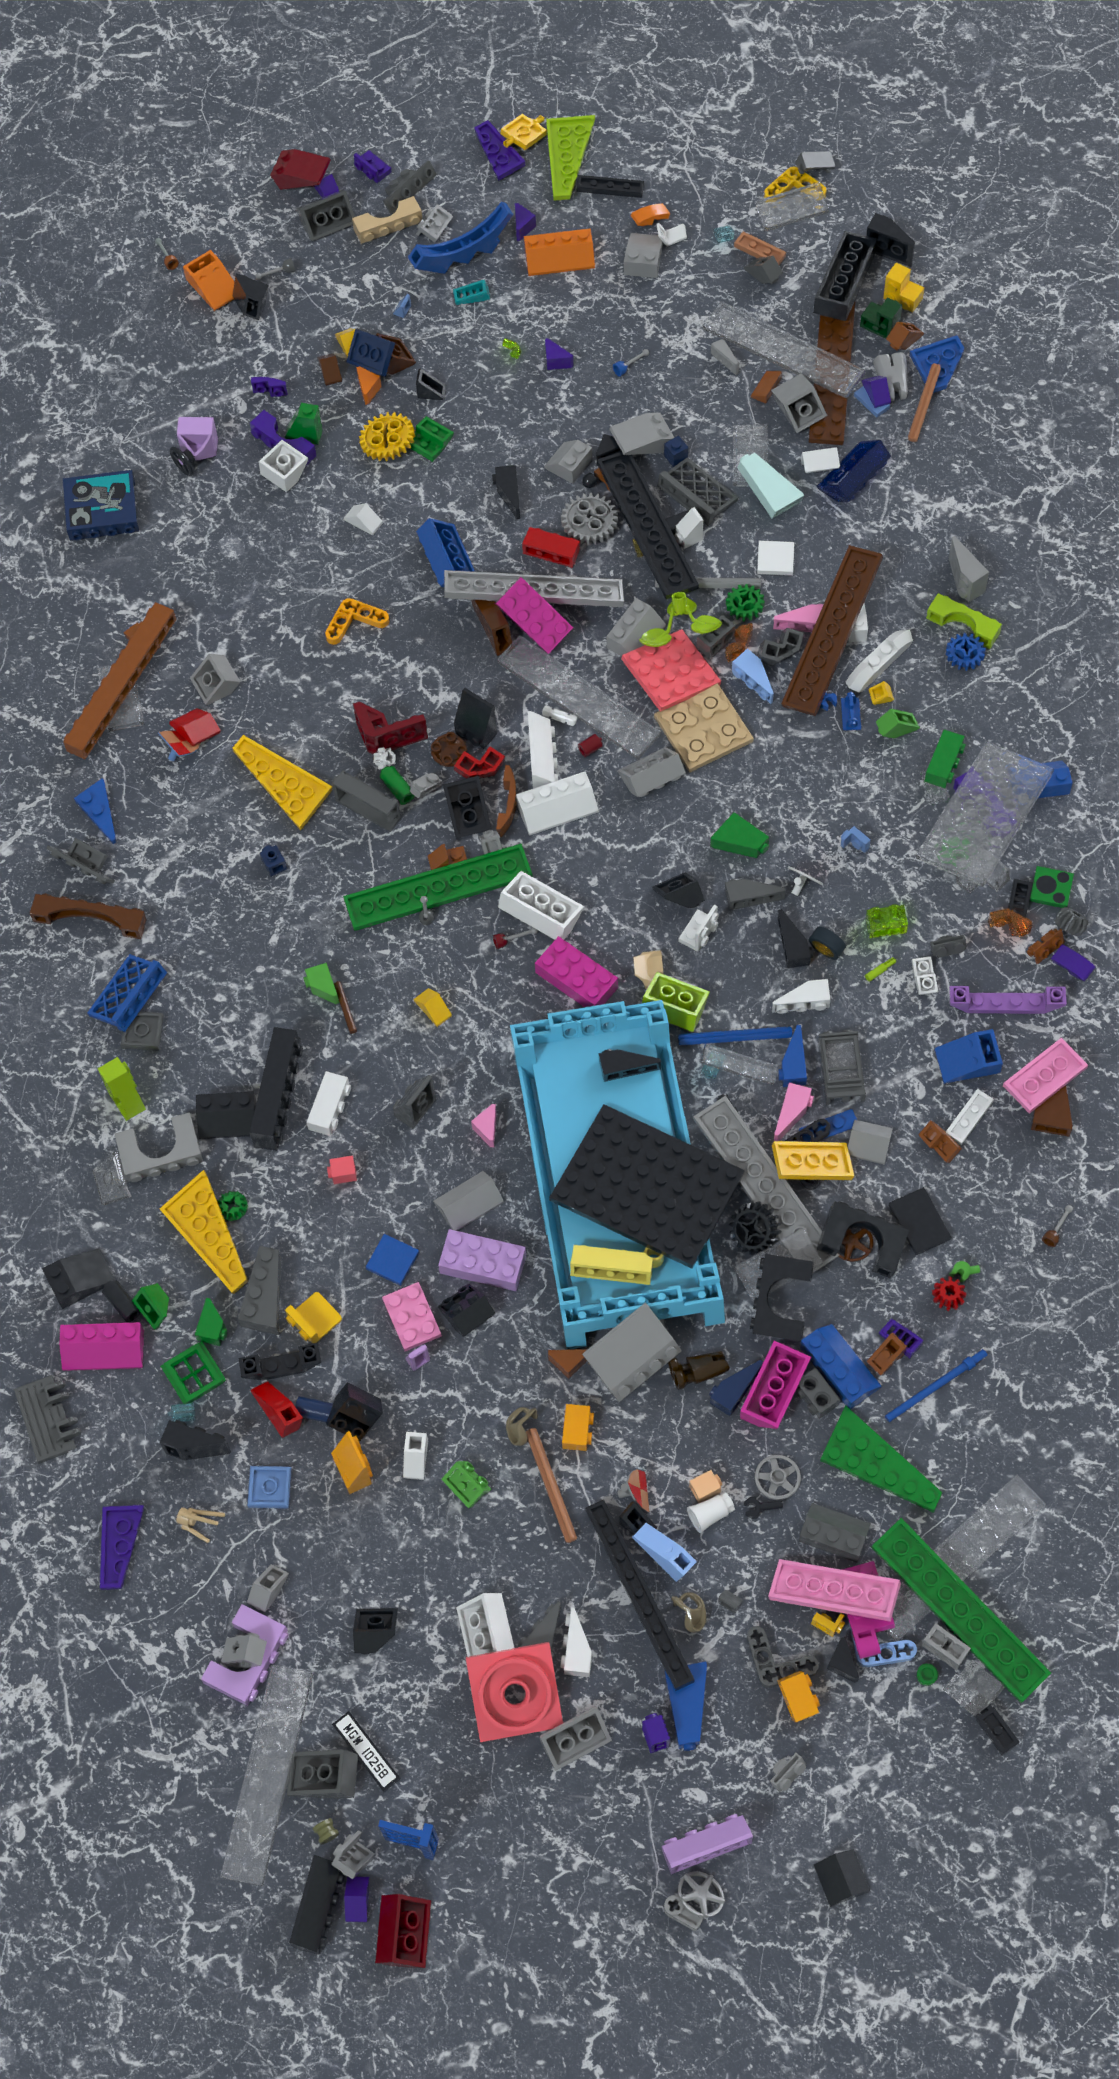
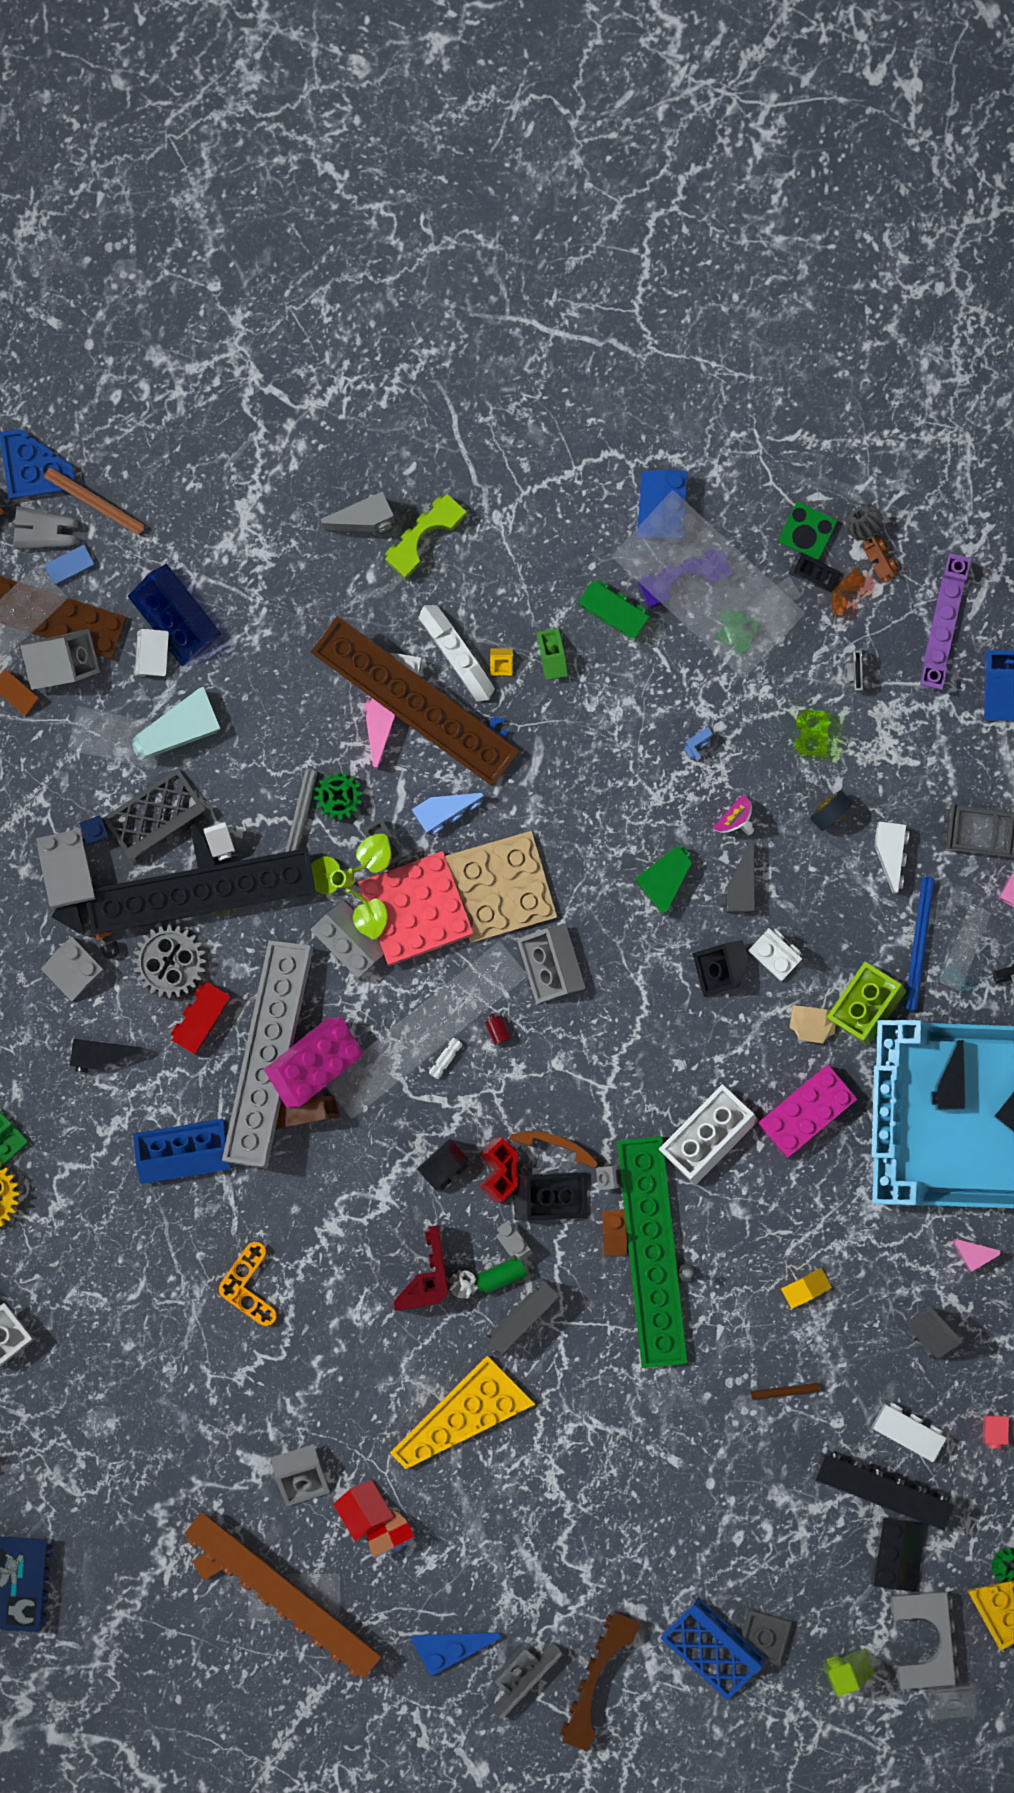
camera: 85 degrees left, 20 degrees up
(273, 860) = (580, 1444): dark blue brick -> none
(321, 983) = (751, 1414): bright green slope -> none
(364, 518) = (99, 1247): white slope -> none
(448, 749) = (464, 1203): reddish brown dish -> none
(501, 940) = (738, 1190): hinge -> none
(542, 750) = (501, 1091): white slope -> none
(557, 803) = (571, 1086): white slope -> none
(742, 636) = (388, 810): clear orange slope -> none
(774, 653) = (417, 759): dark grey brick -> none
(775, 558) = (278, 742): white tile -> none
(793, 1064) = (971, 885): blue slope -> none
(794, 943) = (823, 848): black slope -> none
(850, 712) = (522, 705): blue hinge -> none
(877, 390) = (61, 555): dark purple slope -> none
(880, 969) = (870, 757): lime pin -> none
(924, 975) = (890, 707): white slope -> none
(965, 651) = (479, 548): blue gear -> none
(1073, 962) = (912, 534): dark purple slope -> none

